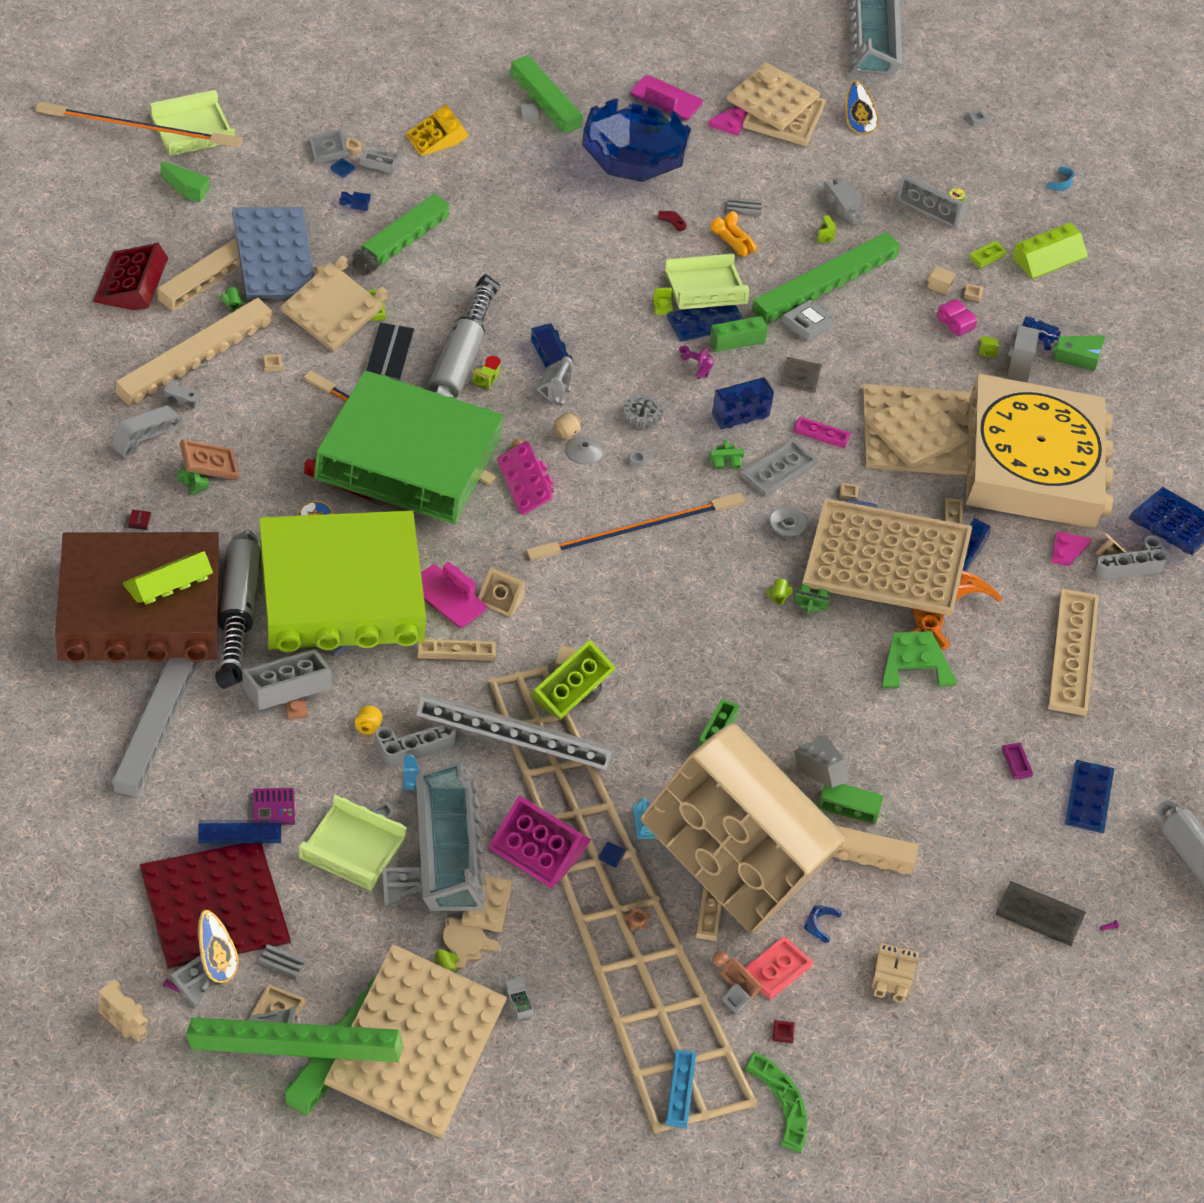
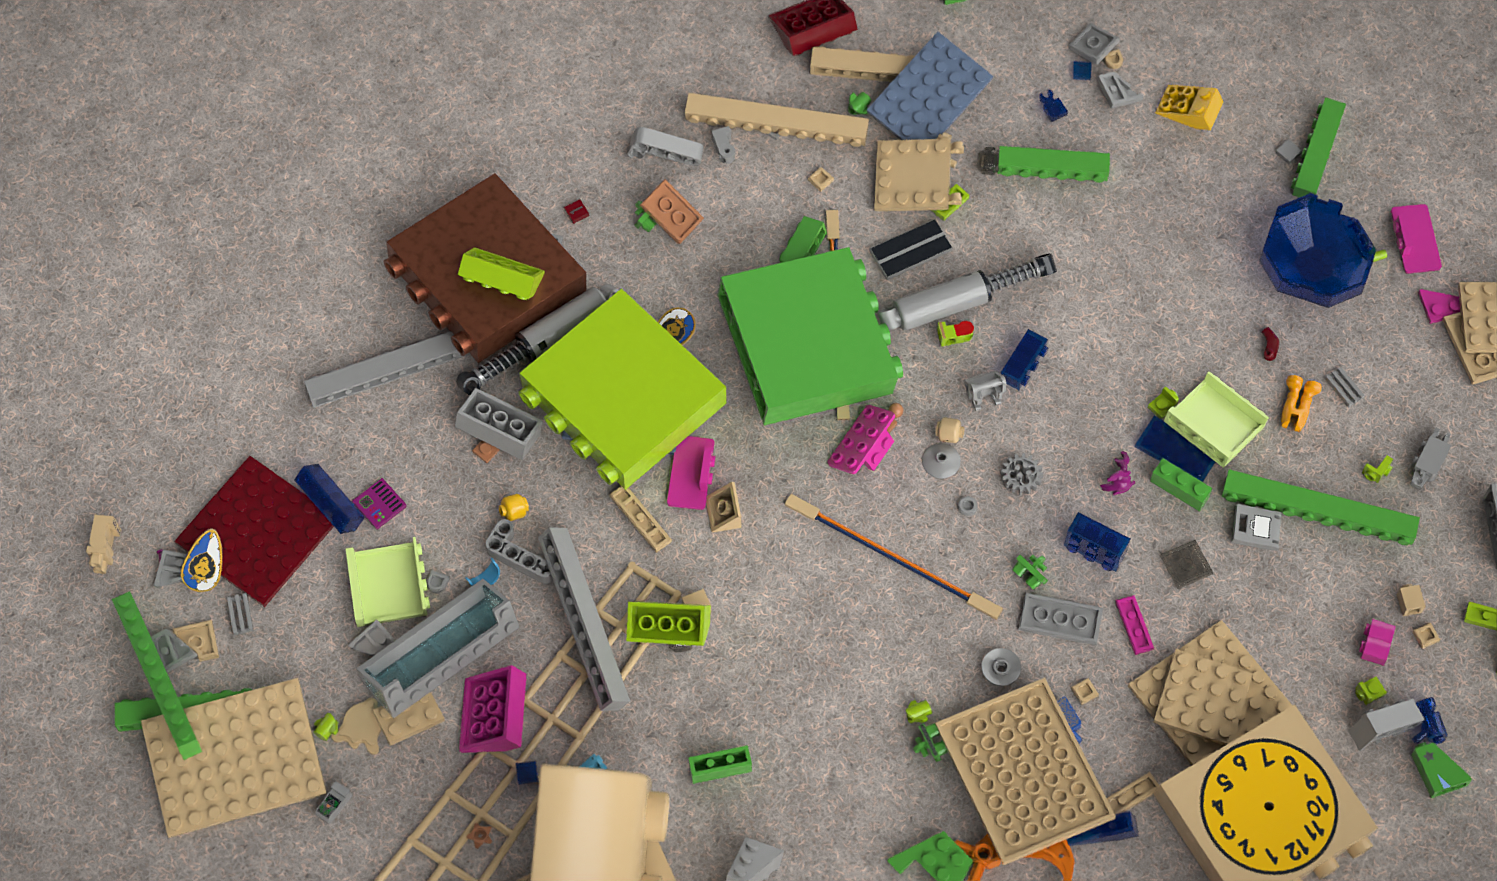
camera: 60 degrees right, 15 degrees up
(320, 404) = (805, 240): none -> bright green brick

